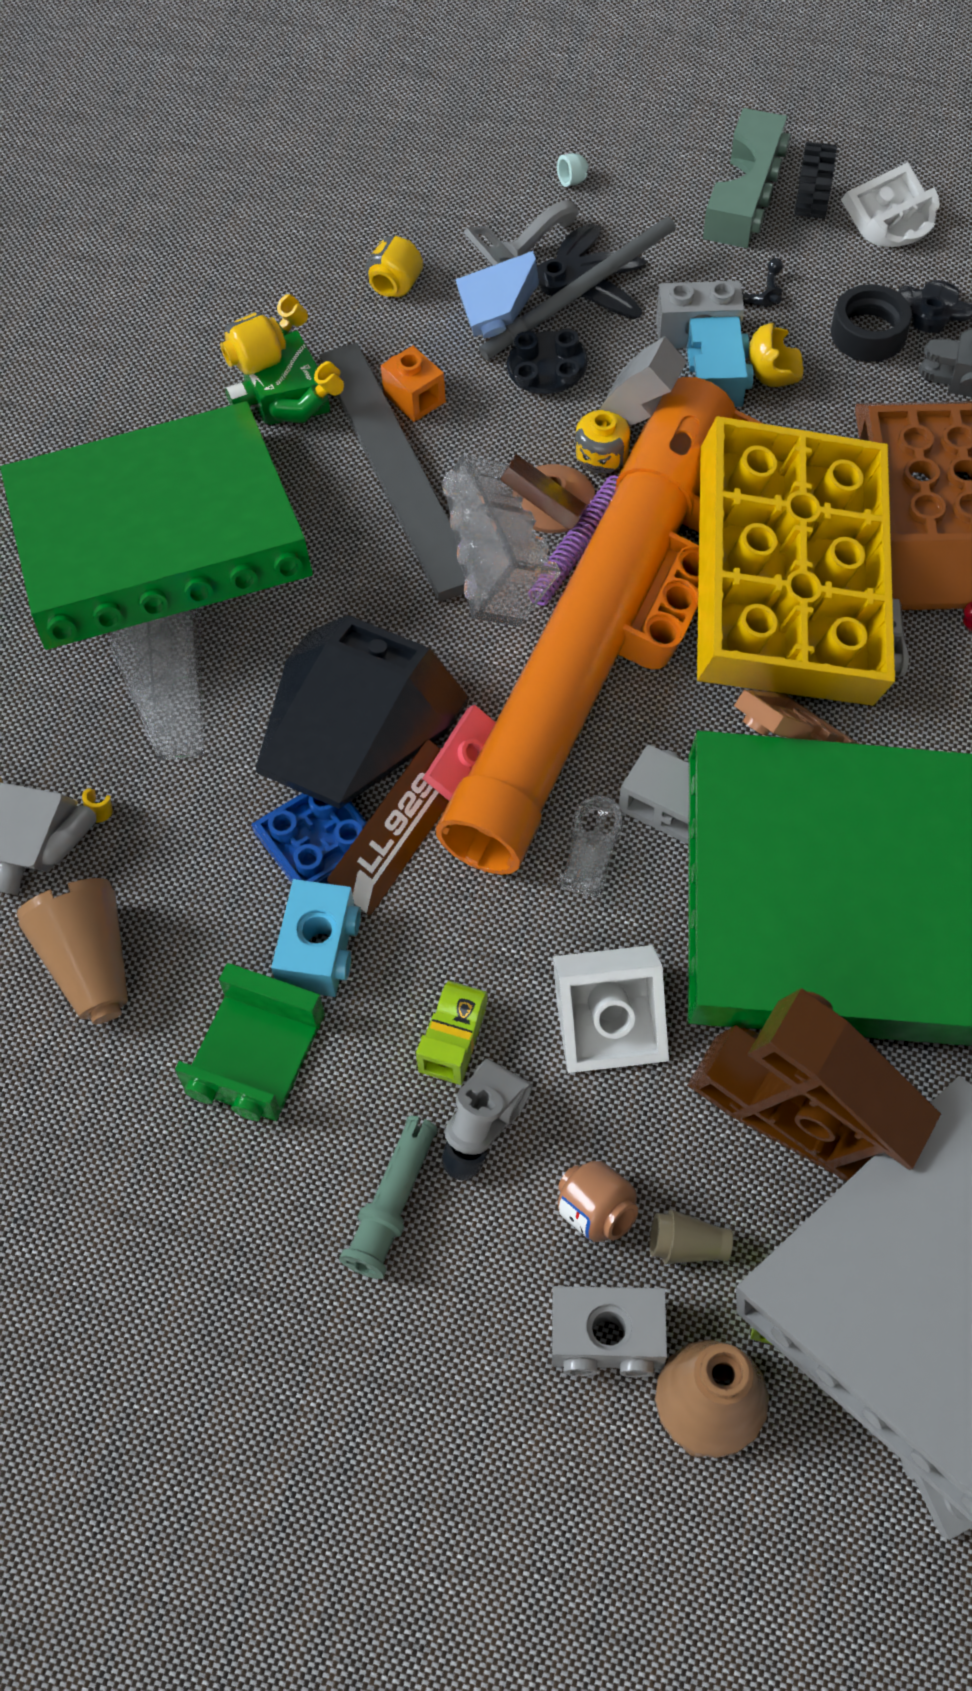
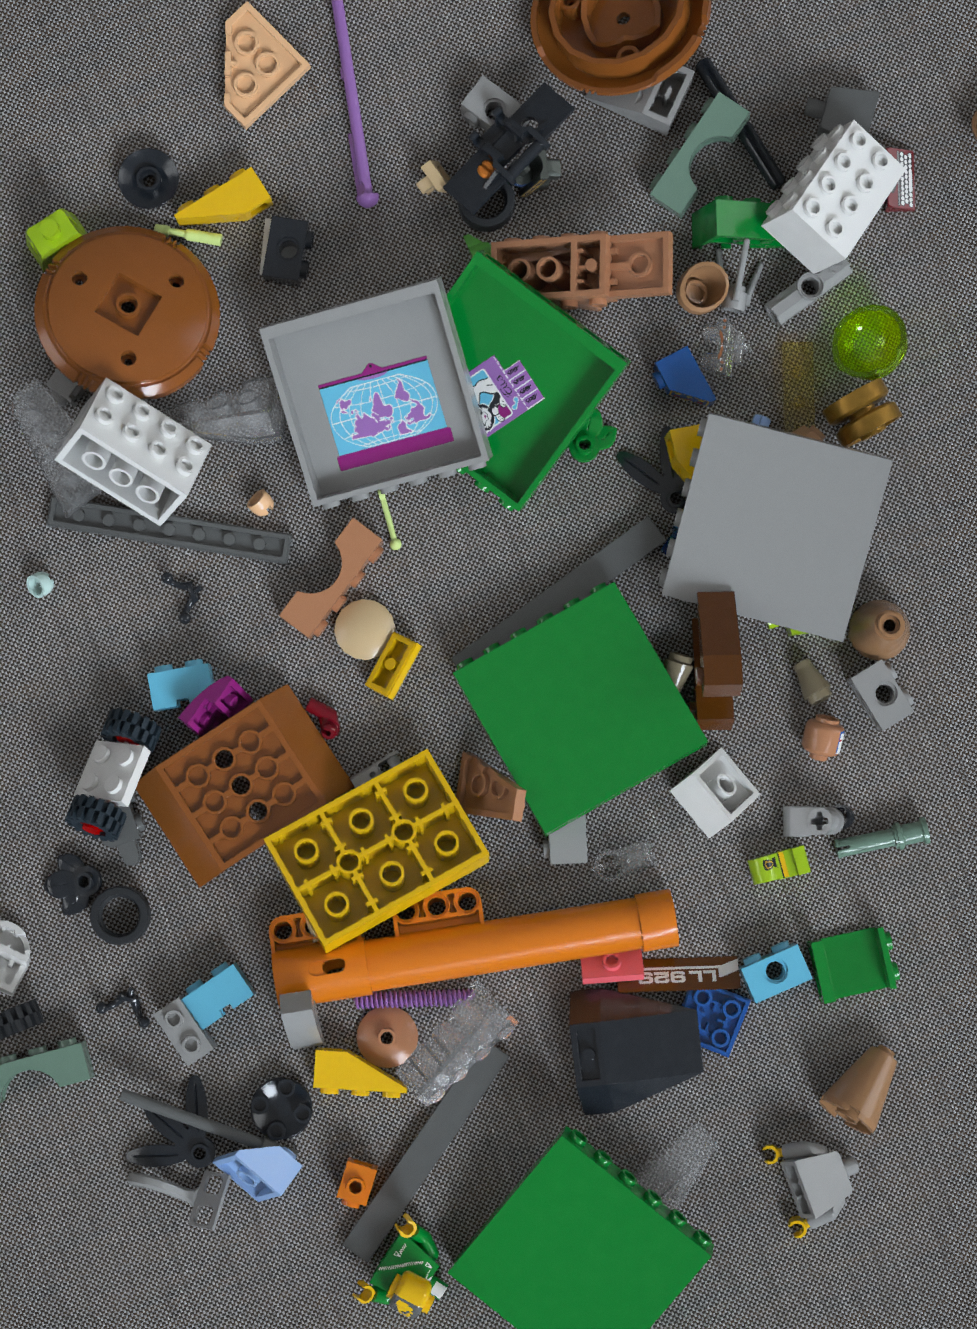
camera: 130 degrees left, 25 degrees up
(394, 266) = (262, 1264): yellow head -> none
(542, 430) = (348, 1071): none -> yellow slope
(543, 492) = (406, 1035): reddish brown tile -> none
(572, 169) = (87, 1204): light aqua hinge -> none
(602, 444) = (338, 1016): yellow head -> none
(772, 359) = (194, 958): yellow hair -> none

